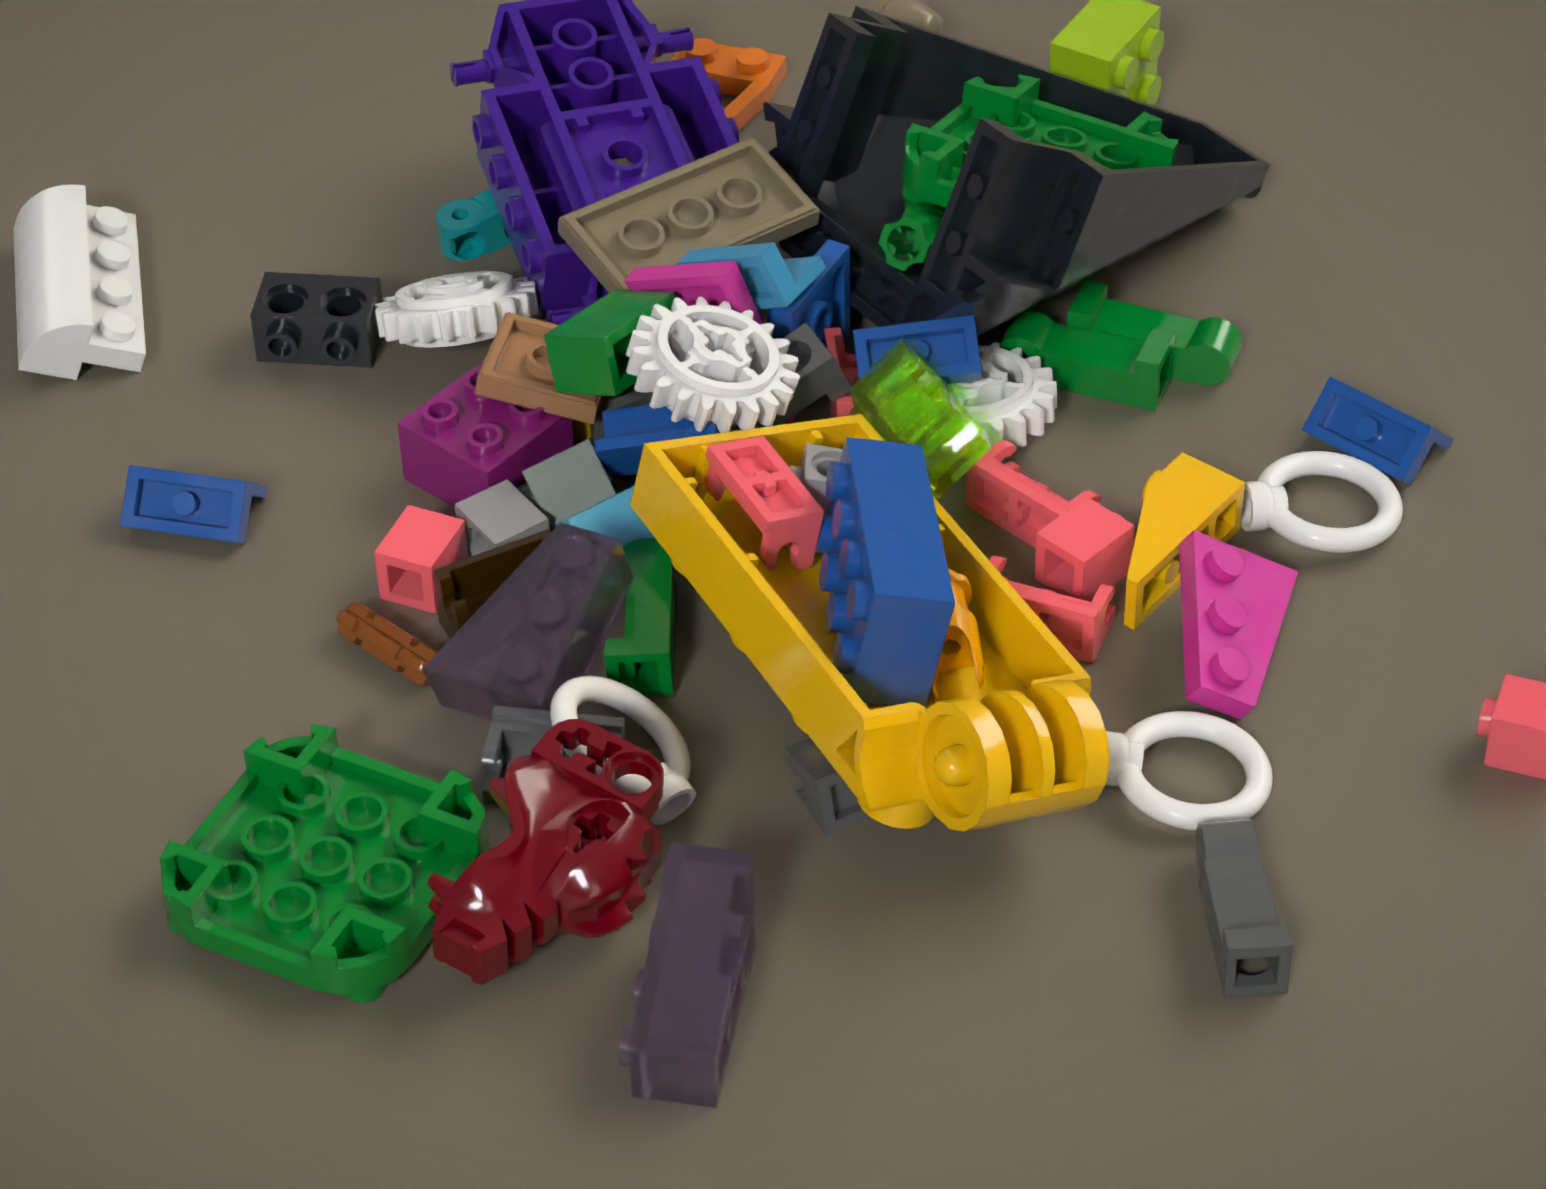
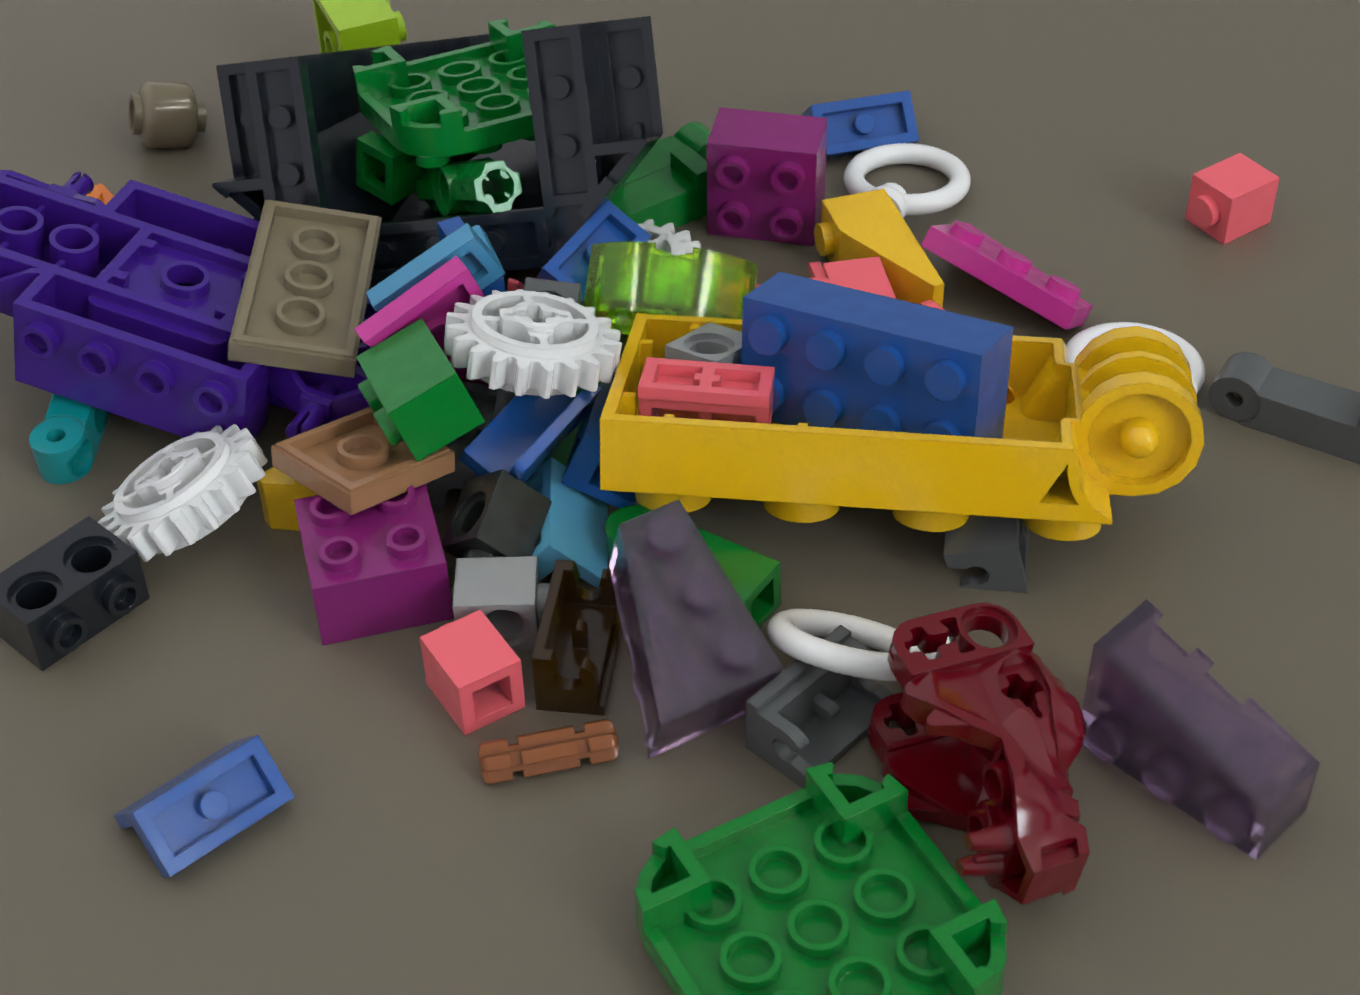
camera: 55 degrees left, 0 degrees up
(1179, 395) = (766, 175): none -> magenta brick

